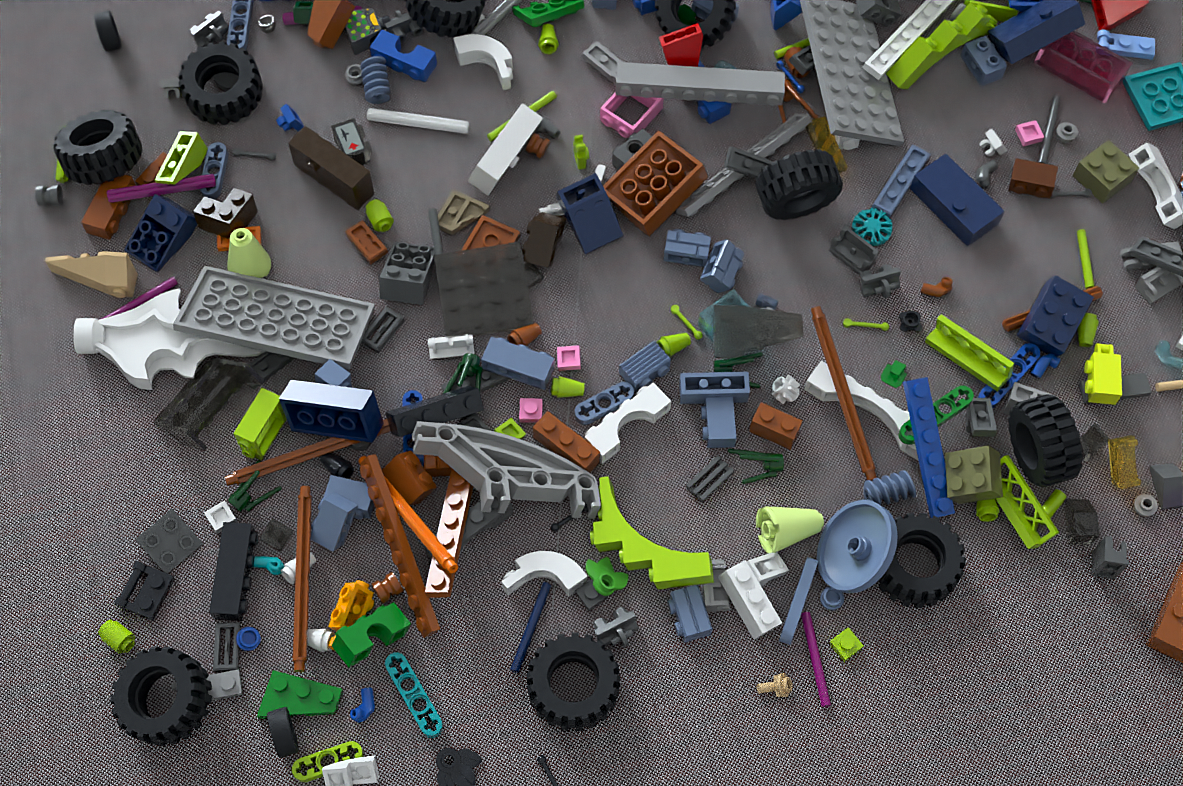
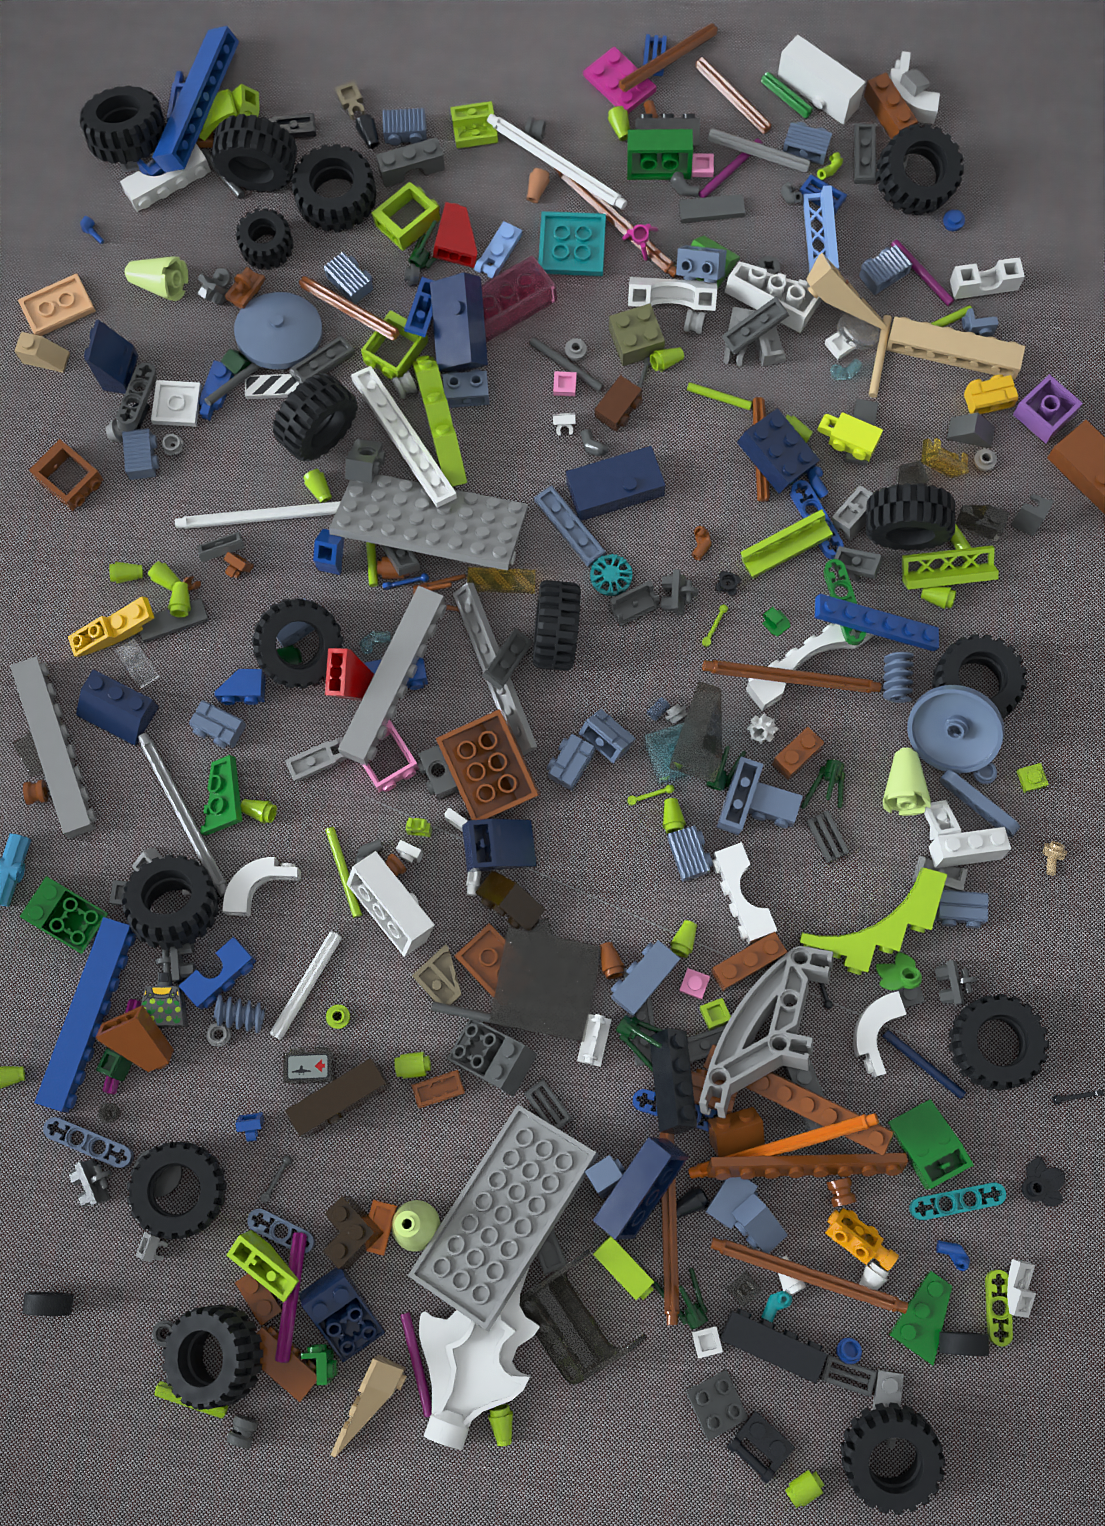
camera: 65 degrees left, 10 degrees up
(106, 378) = (501, 1423): none -> lime cone
(115, 228) = (325, 1364): none -> green bracket
(385, 623) = (900, 1243): green arch -> none
(400, 156) = (343, 1021): none -> lime plate
(455, 651) = (930, 1144): none -> green slope
(556, 154) = (409, 852): none -> white plate
(568, 358) = (652, 925): bright pink plate -> none
(601, 412) = (704, 892): sand blue beam -> none
(815, 659) = (1039, 811): magenta bar -> none
(973, 474) = (916, 594): olive brick -> none
(1097, 203) = (666, 358): none -> lime cone
(1145, 214) = (694, 321): none -> light grey wheel

